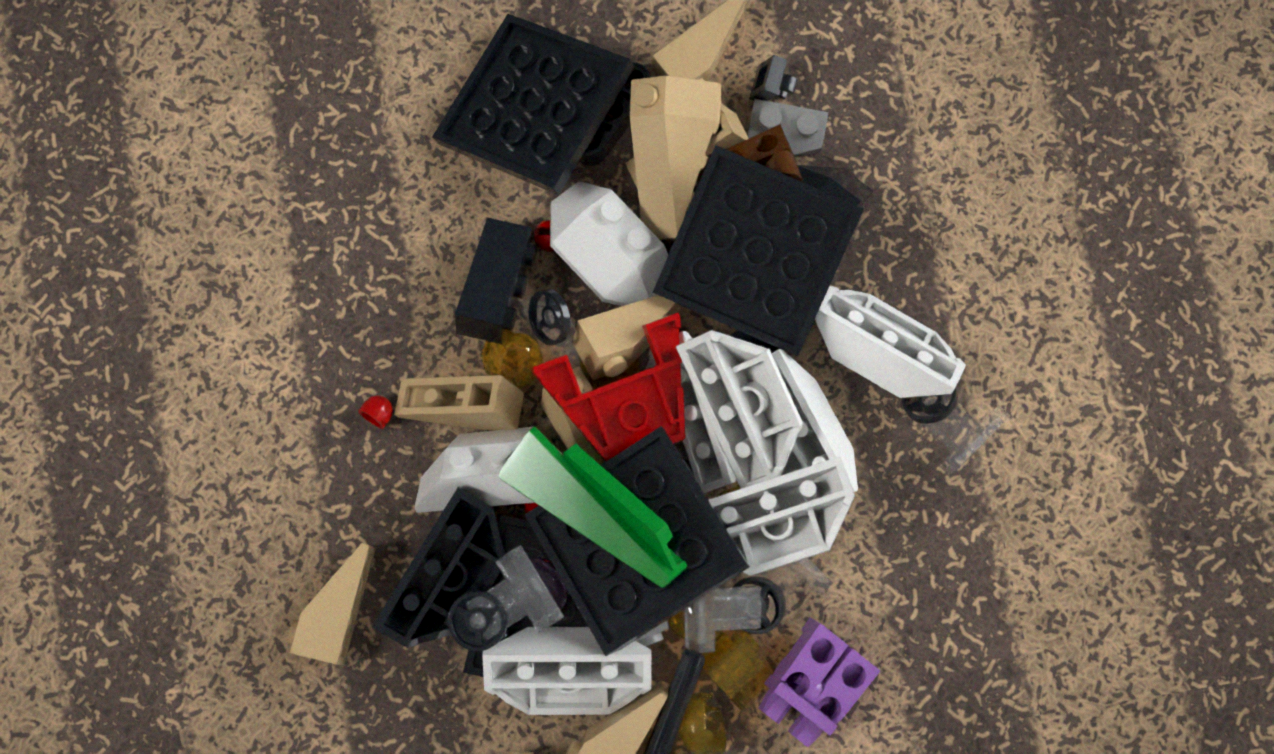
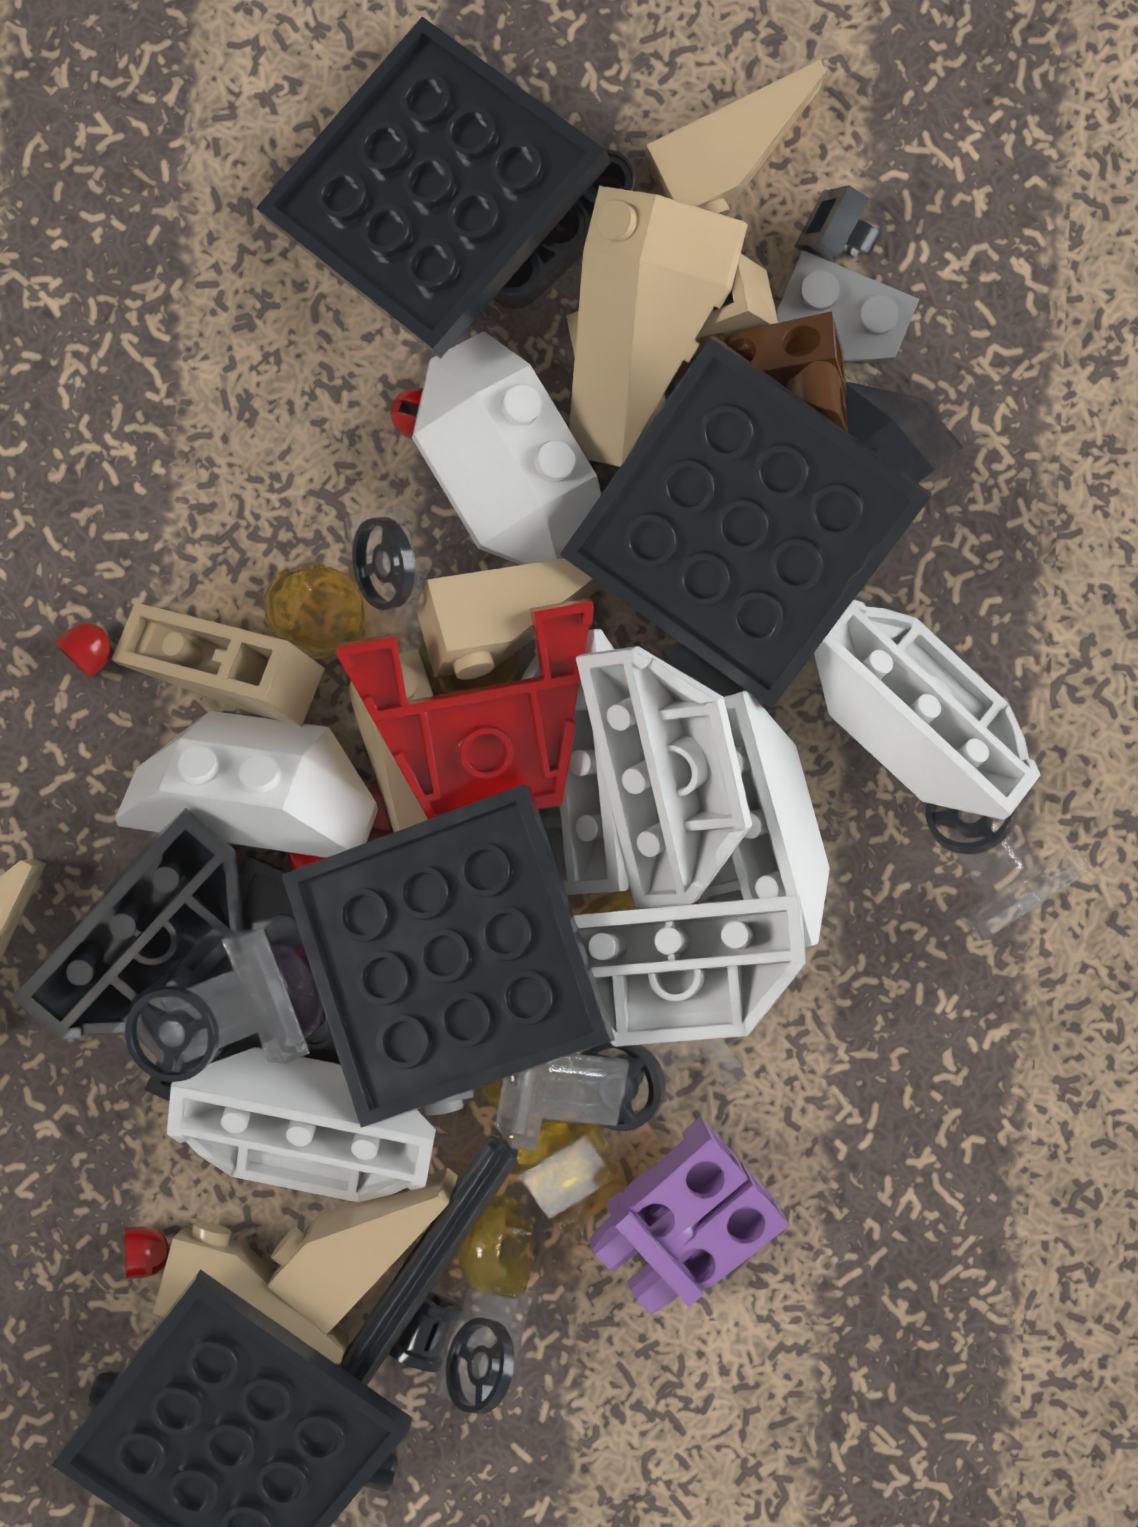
camera: 10 degrees right, 10 degrees up
(495, 281) = (312, 478): black brick -> none
(593, 504) = (387, 892): green wedge -> none

